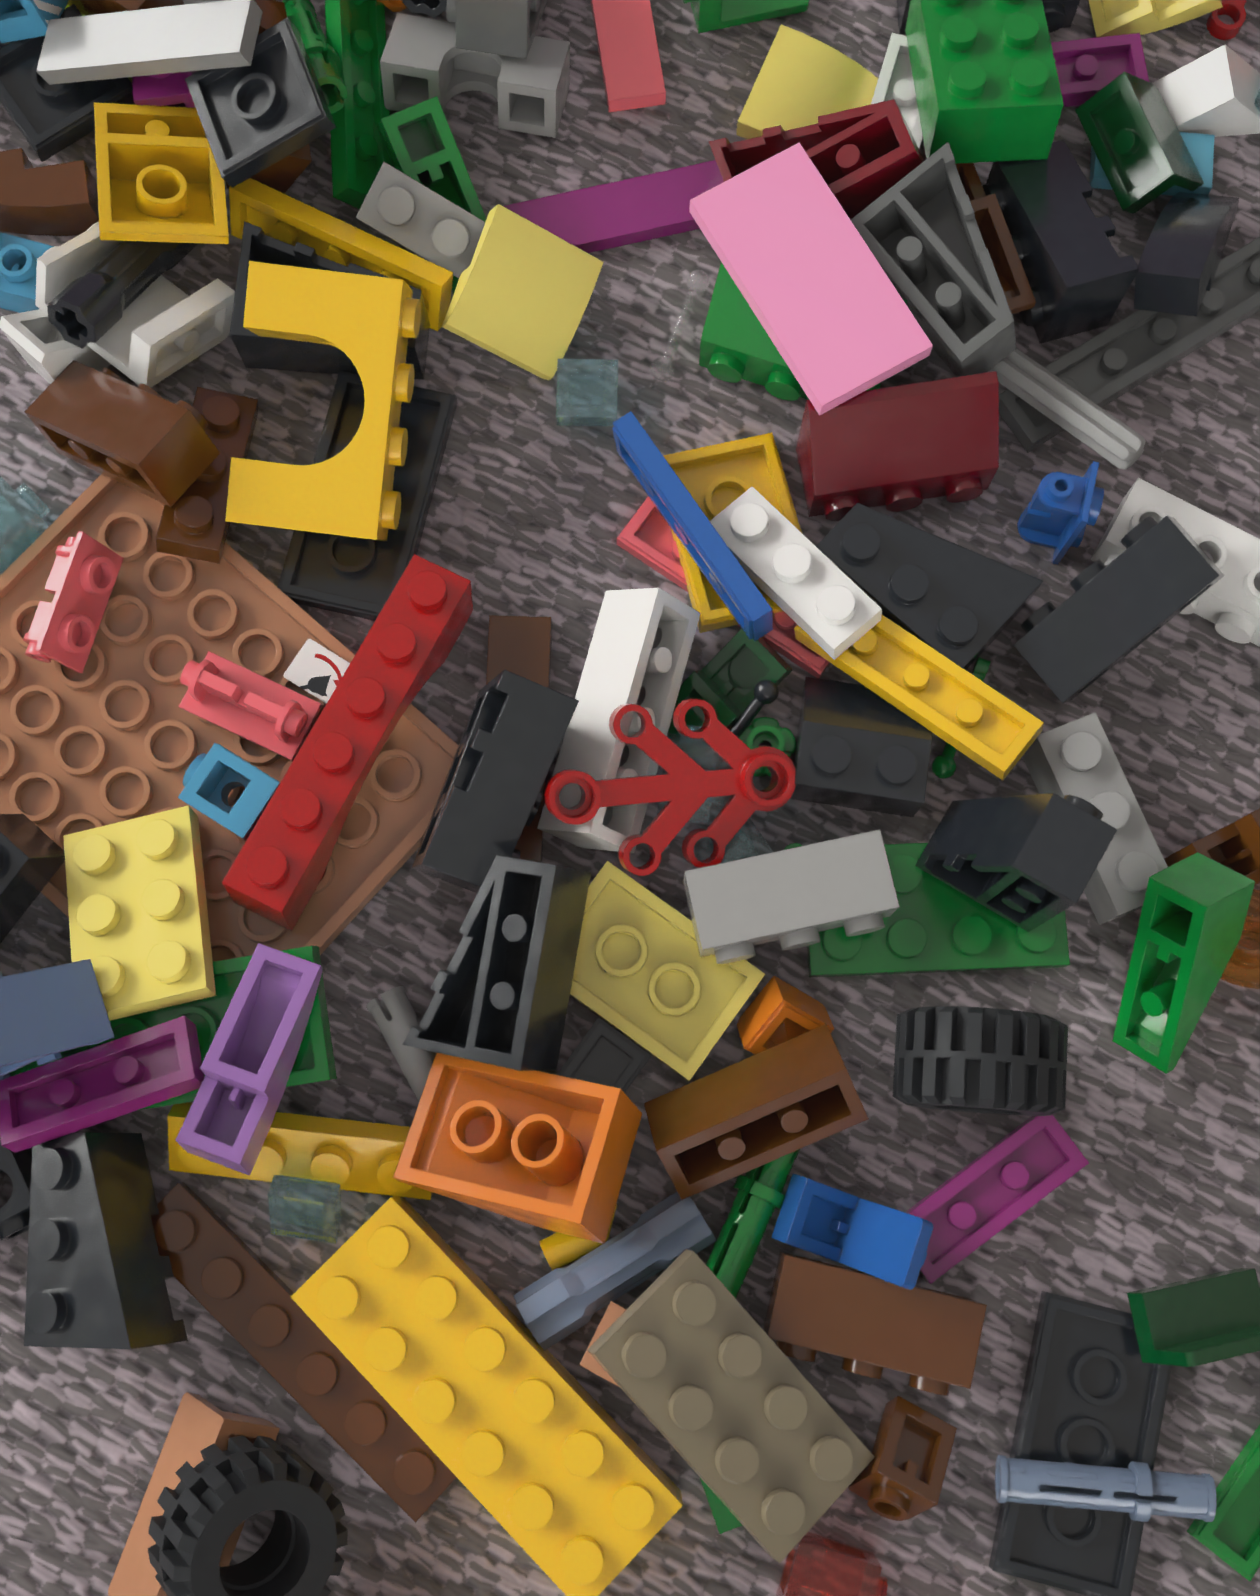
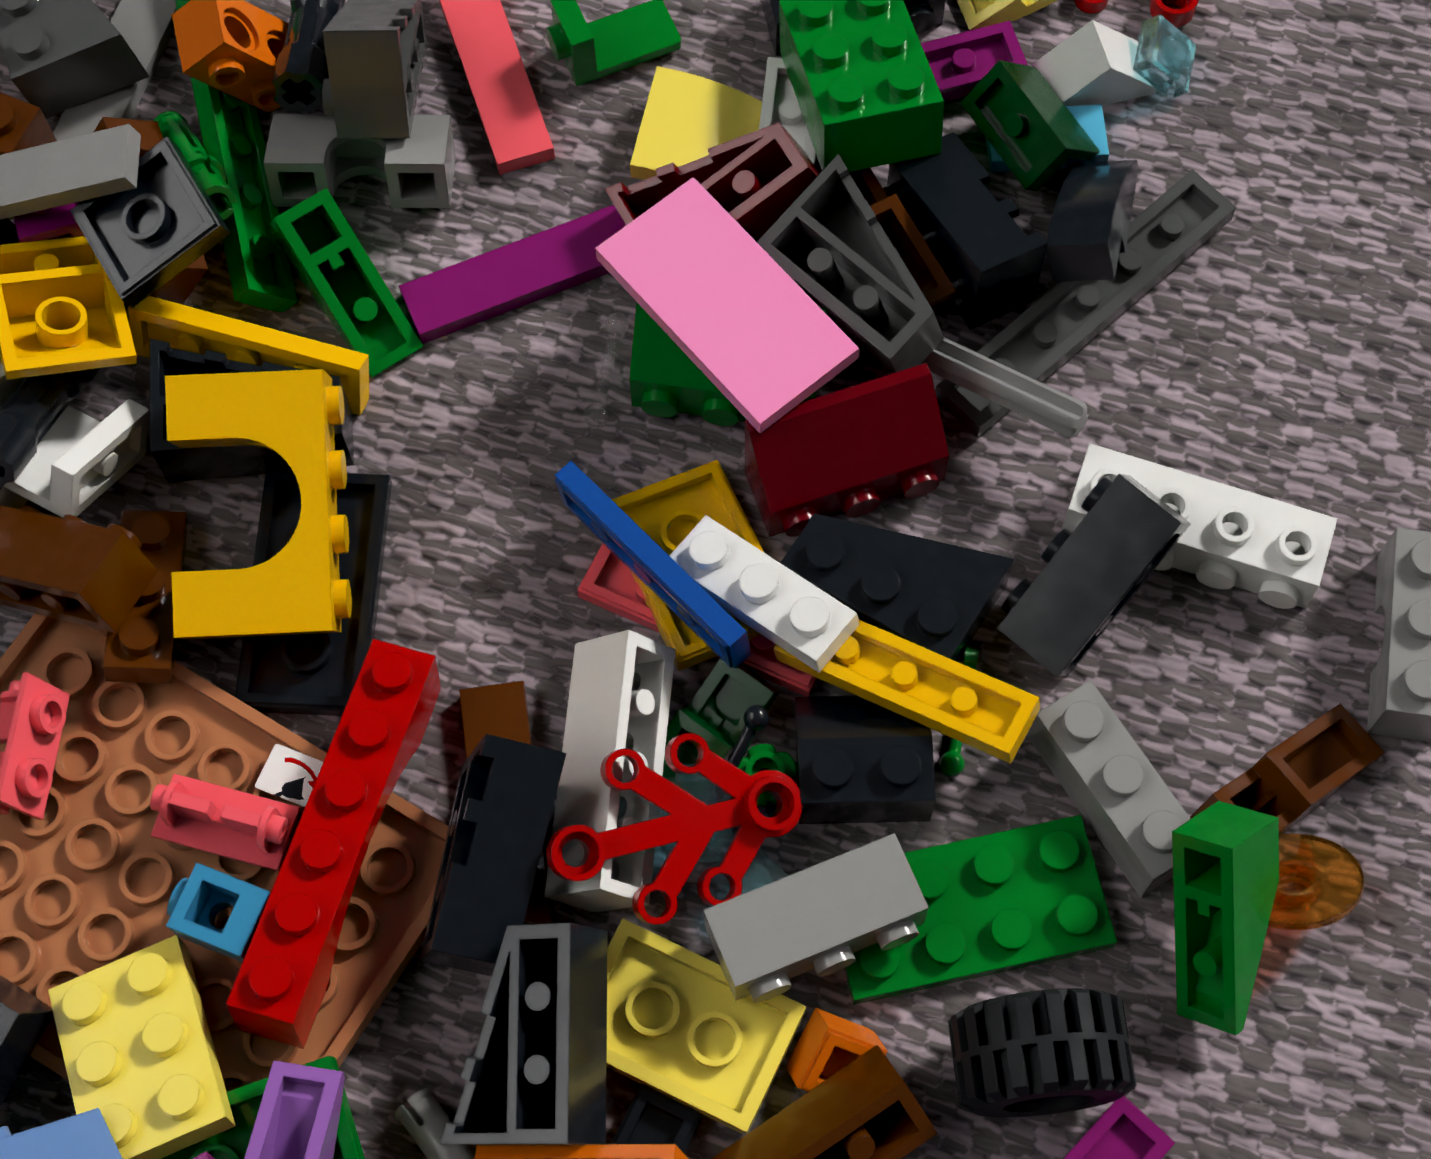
camera: 10 degrees left, 10 degrees down
(421, 220) = (359, 320): light grey plate -> none
(522, 293) = (442, 364): light yellow slope -> none
(587, 392) = (523, 450): clear light blue plate -> none
(1019, 853) = (1036, 831): black wedge -> none
(1062, 511) = (1019, 488): blue hinge -> none

